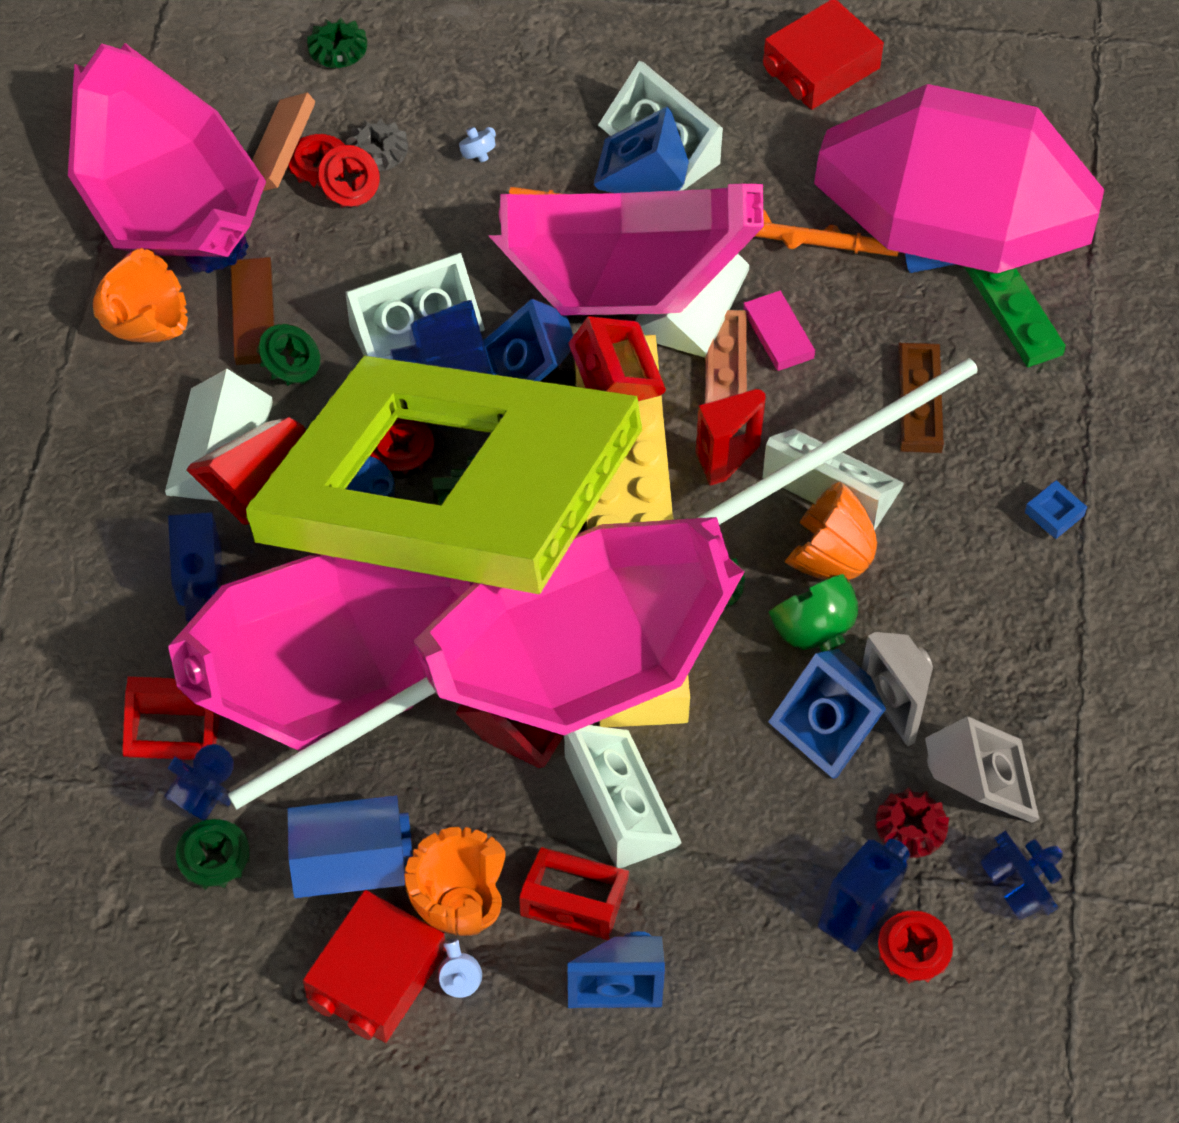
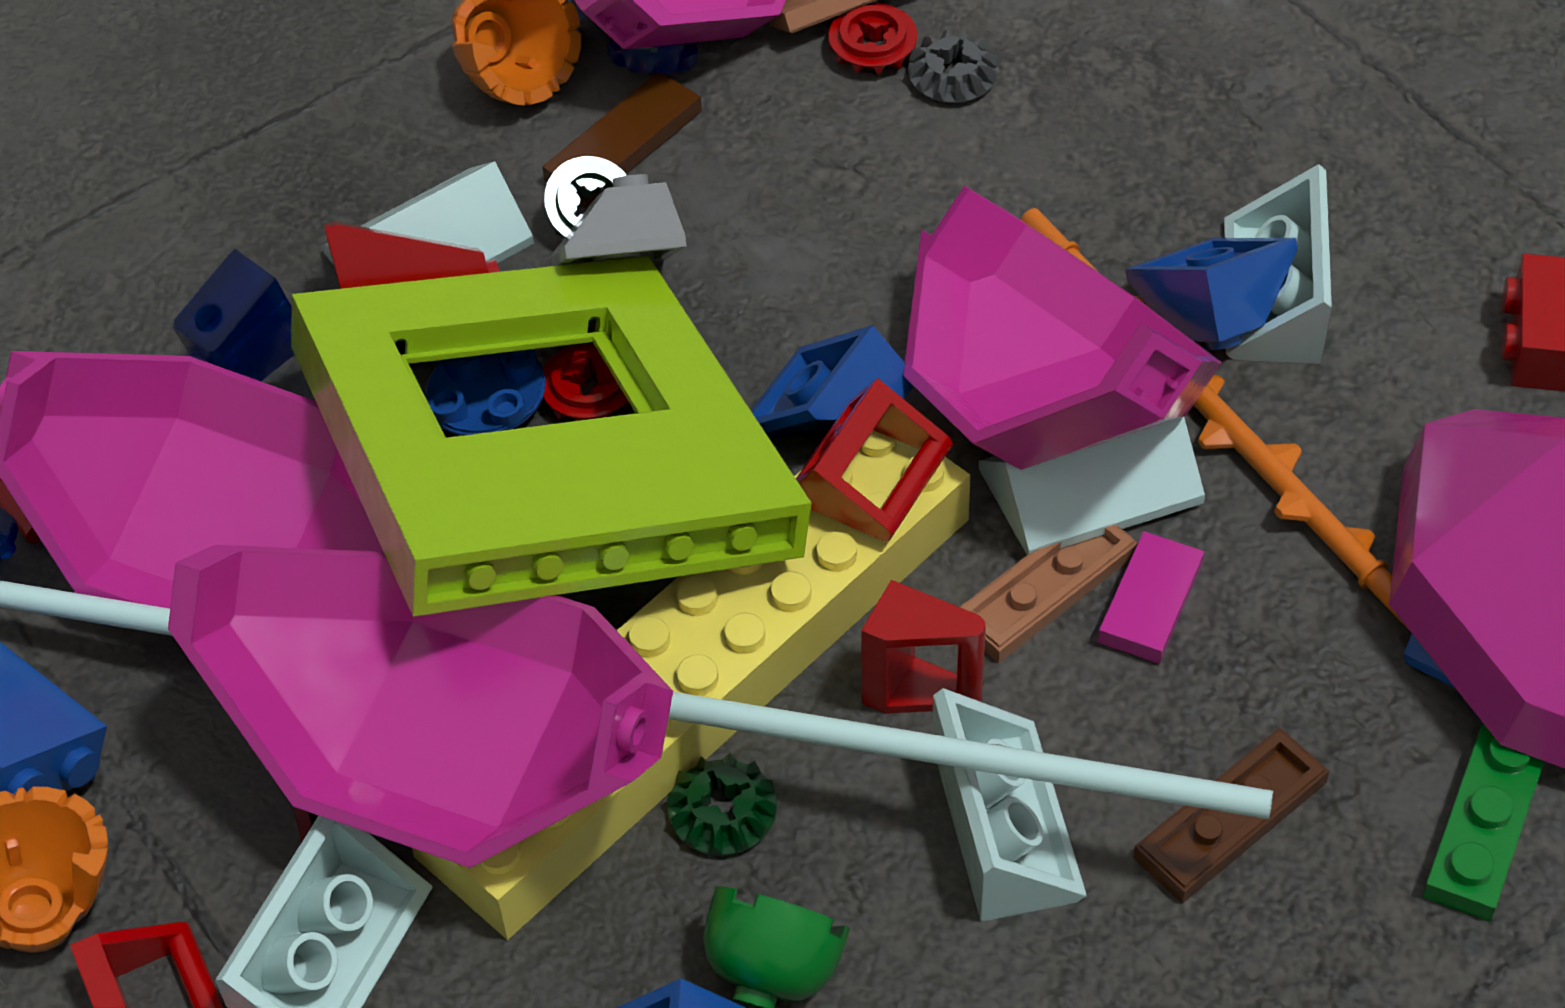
camera: 50 degrees right, 5 degrees down
(335, 352) = (624, 223): none -> light grey slope
(355, 161) = (862, 49): gear -> none
(385, 308) = (767, 255): light aqua slope -> none
(446, 340) = (748, 315): clear blue torso -> none
(478, 143) = (1059, 139): light blue piece -> none
(841, 539) = (893, 881): orange hair -> none

